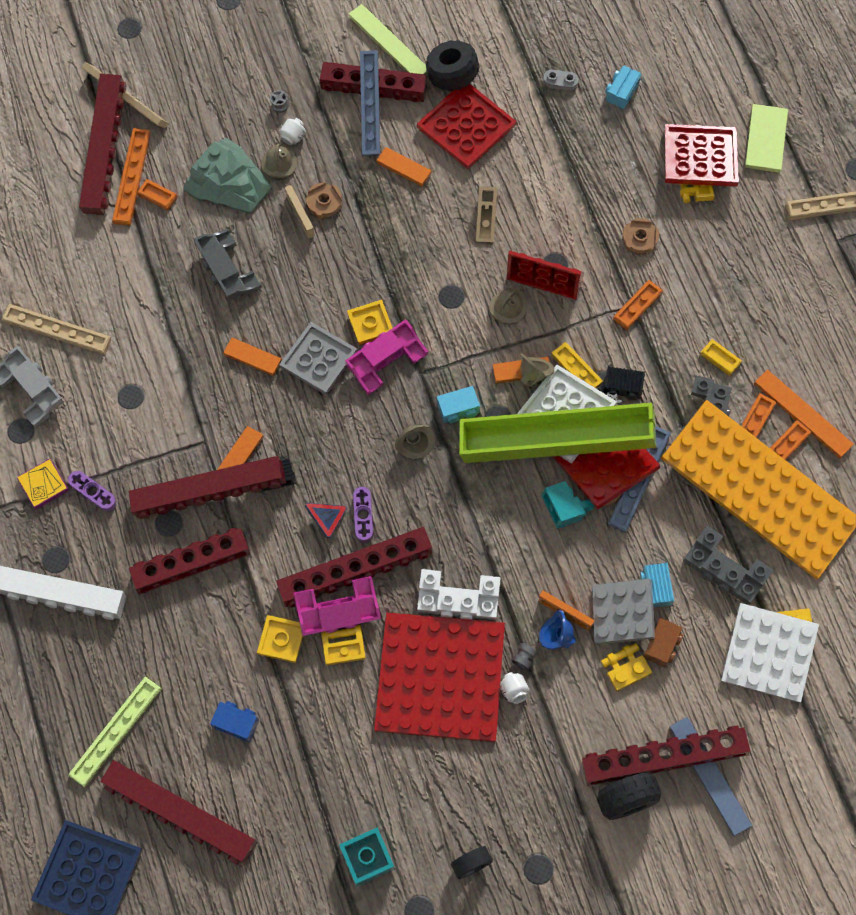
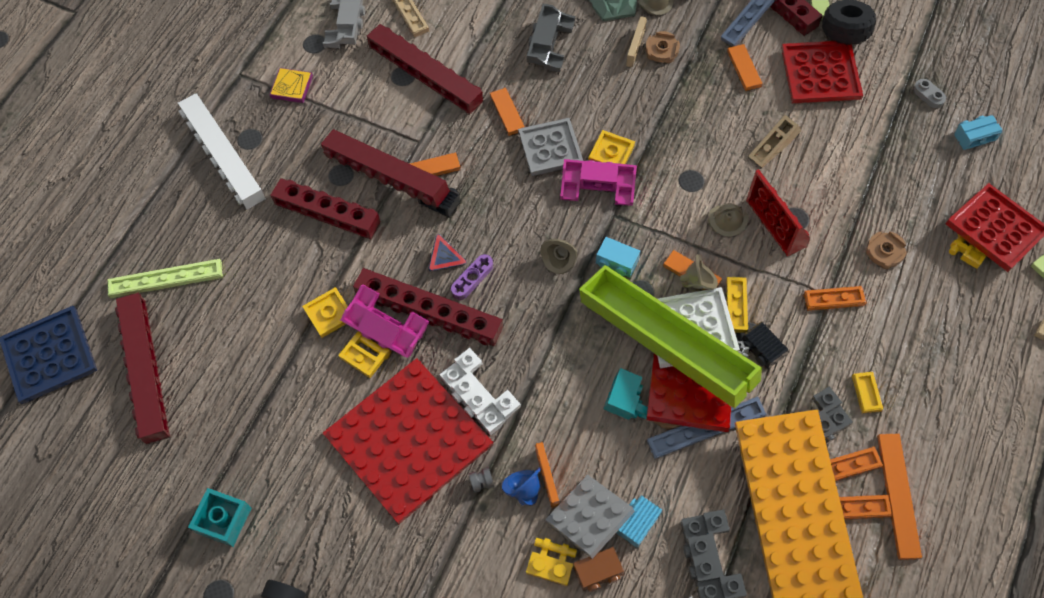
camera: 45 degrees right, 5 degrees down
(91, 483) = (313, 108): medium lavender beam -> none
(145, 375) = (425, 68): none -> dark red brick
(235, 721) = (239, 339): blue brick -> none
(514, 688) = (450, 496): white head -> none

